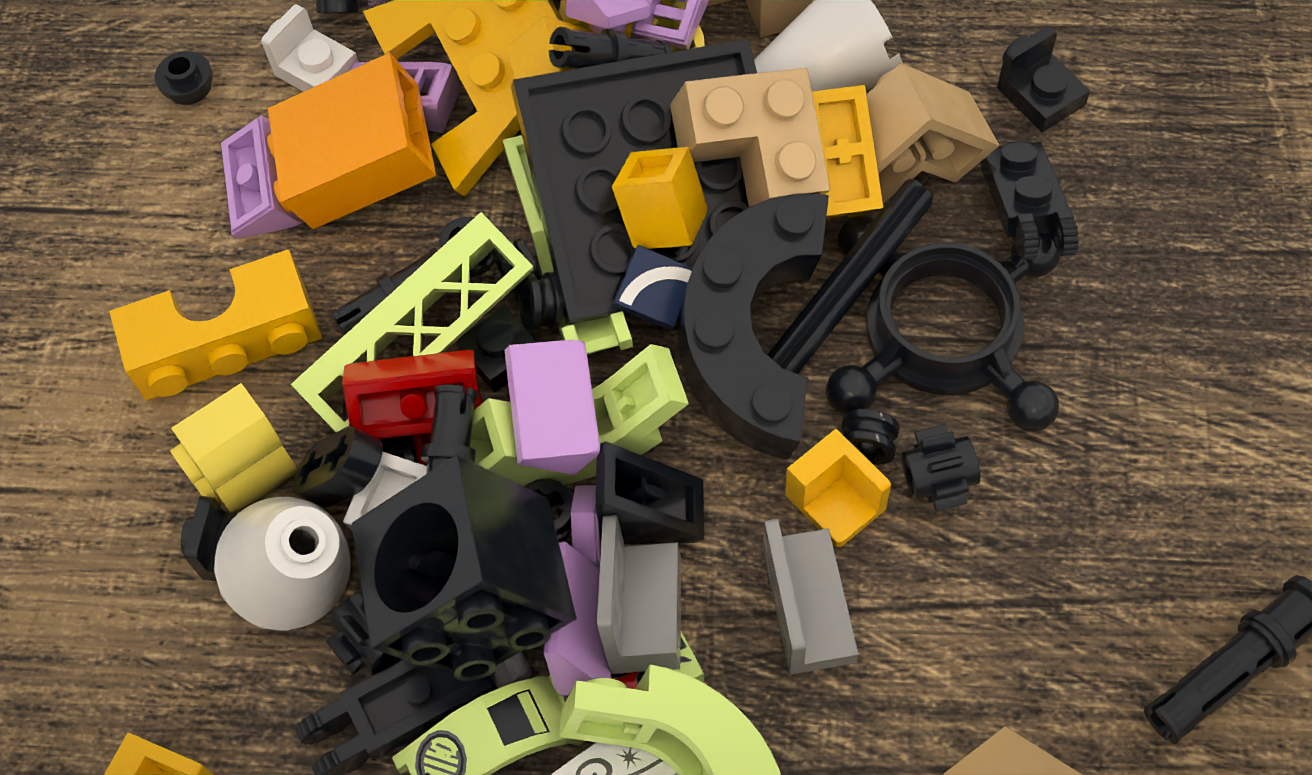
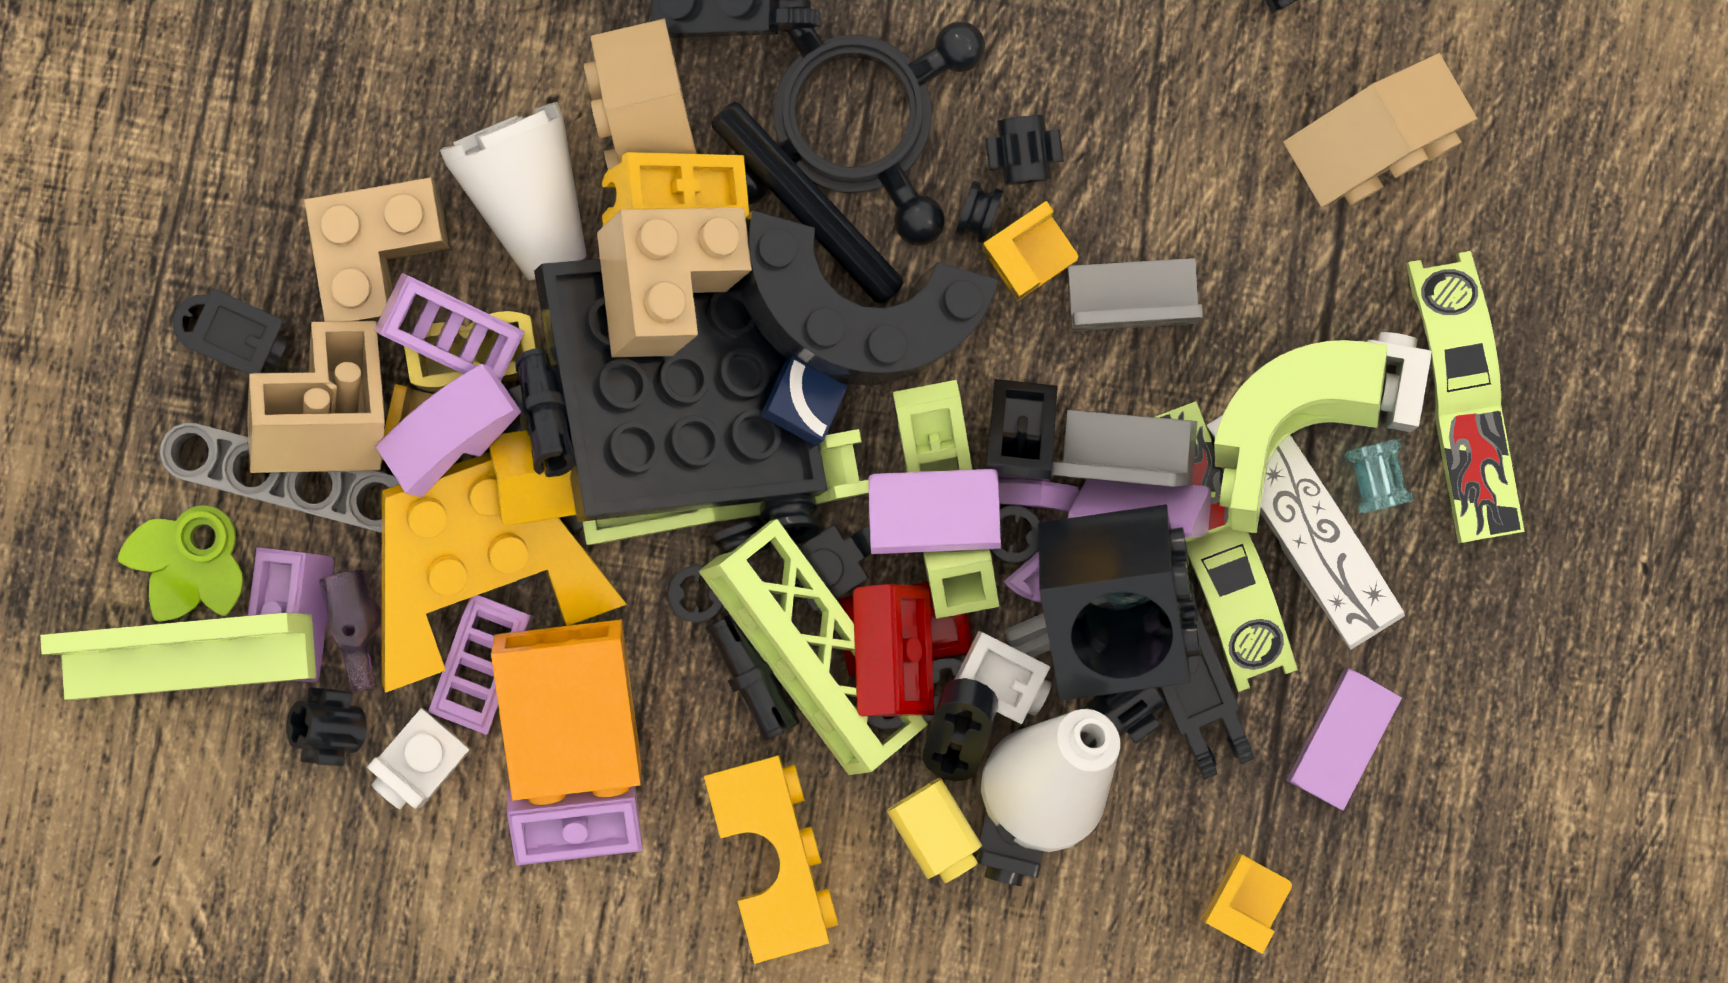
camera: 85 degrees left, 25 degrees up
(184, 77) = (442, 903): black plate -> none
(450, 426) = (976, 615): black pin -> none
(660, 198) = (723, 380): yellow panel -> none

